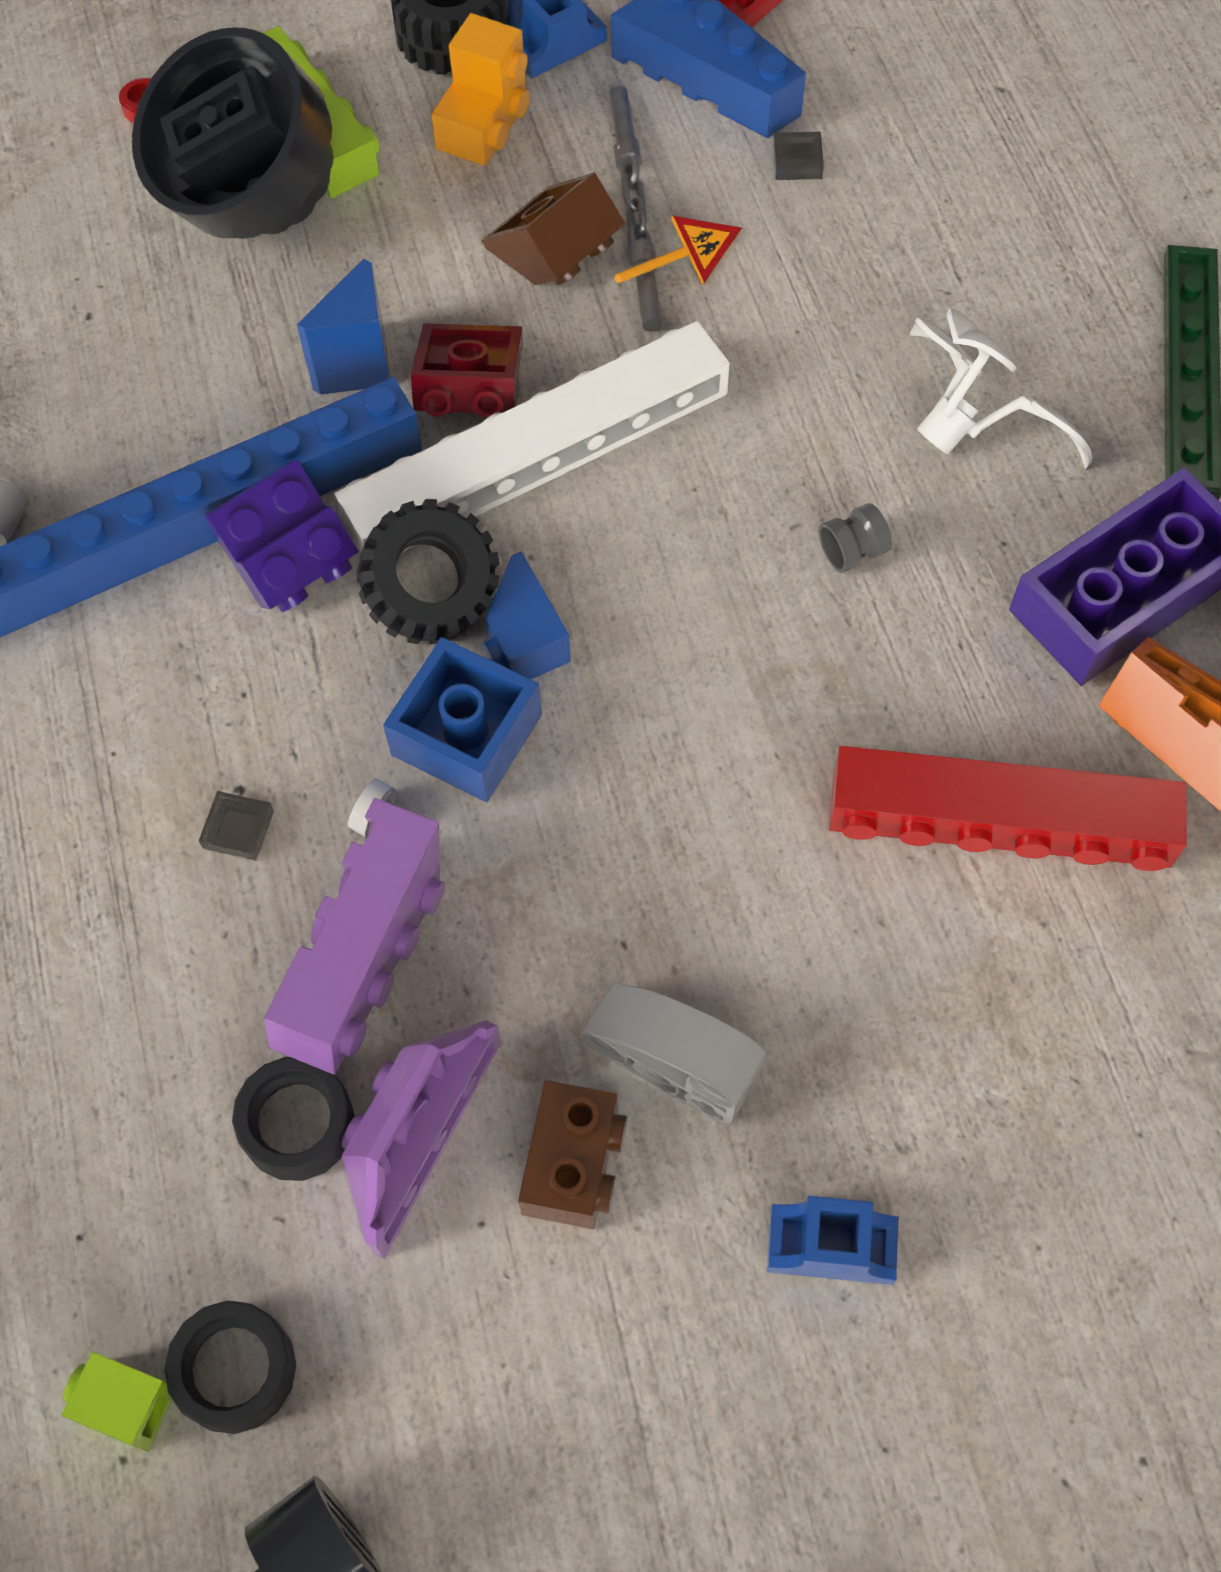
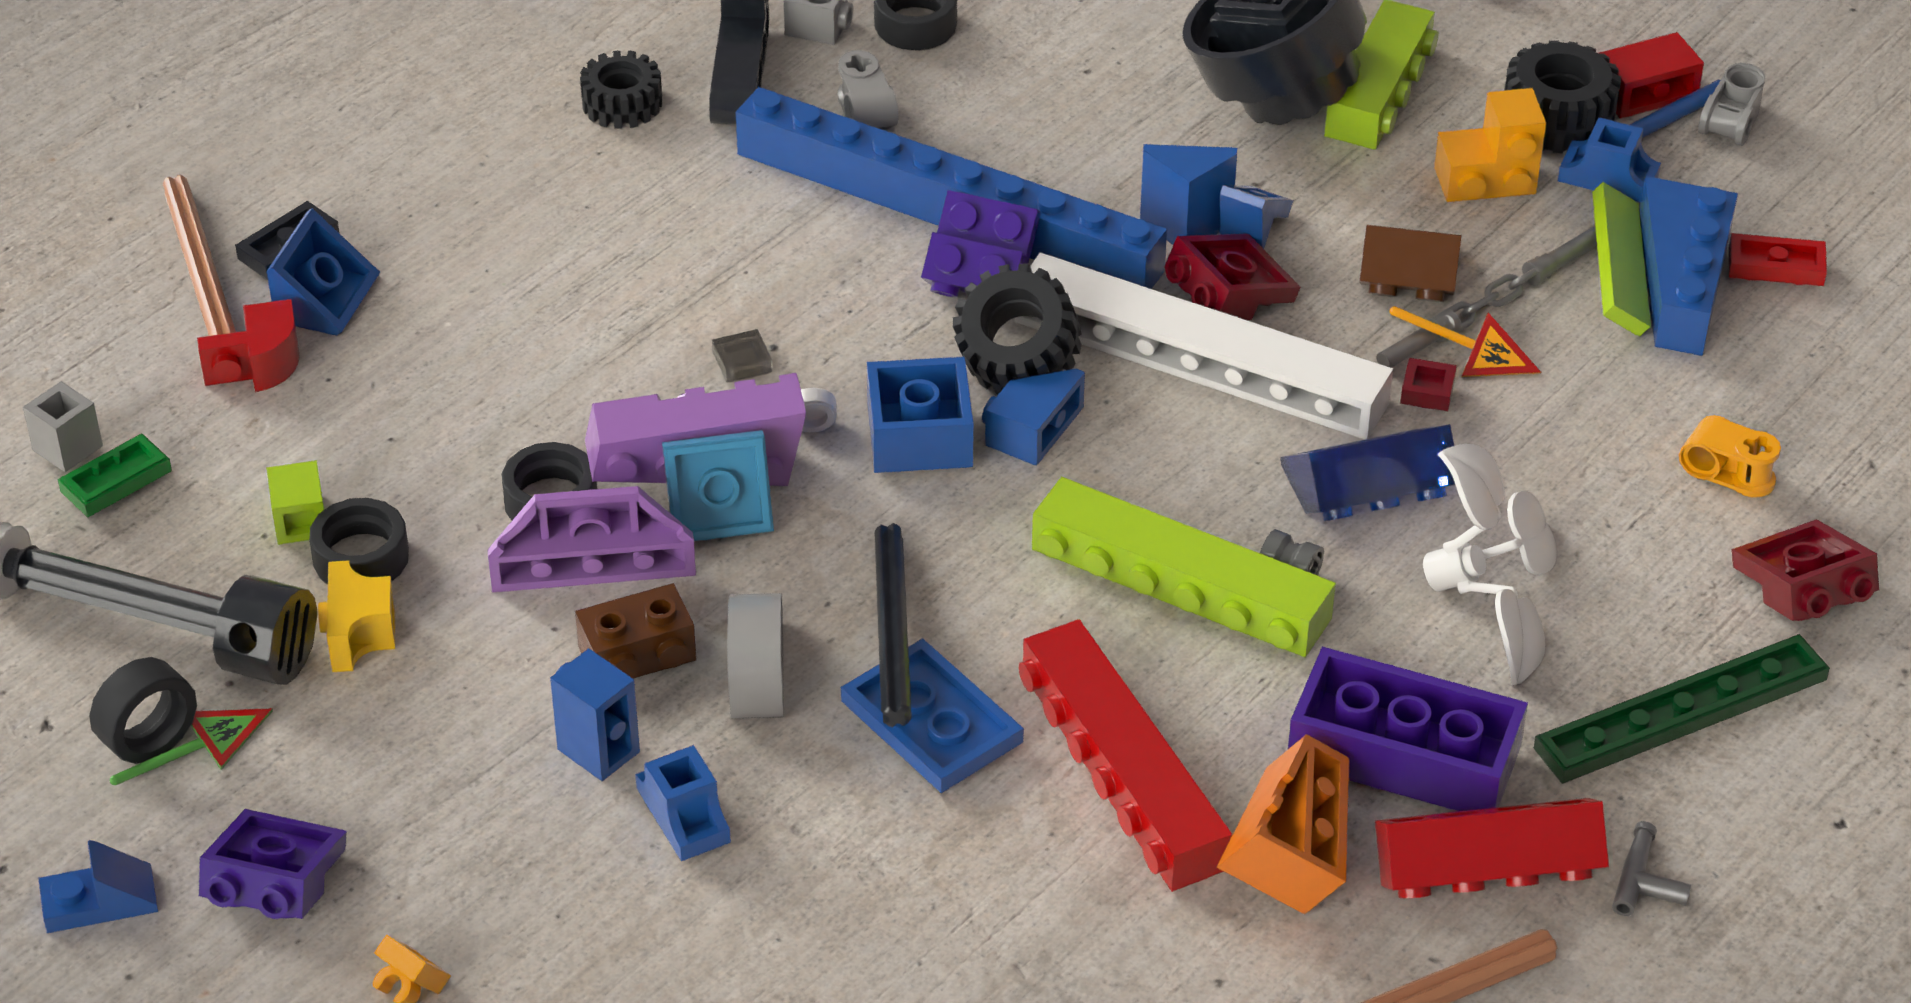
camera: 55 degrees right, 20 degrees down
(339, 1432) = (356, 615): none -> yellow brick
(406, 304) = (1251, 211): none -> blue slope
(435, 957) = (719, 484): none -> dark azure tile
(665, 94) = (1621, 259): none -> lime tile
(679, 1265) = (595, 714): none -> blue brick
(712, 307) = (1428, 384): none -> dark red plate
(730, 909) = (892, 626): none -> black axle
(785, 410) = (1371, 472): none -> clear blue slope
(798, 155) = (1650, 369): clear smoke tile -> none
(802, 624) = (1183, 566): none -> lime brick
(850, 941) = (952, 721): none -> blue plate
(943, 166) = (1730, 453): none -> light orange piece
(1111, 194) = (1809, 570): none -> dark red plate

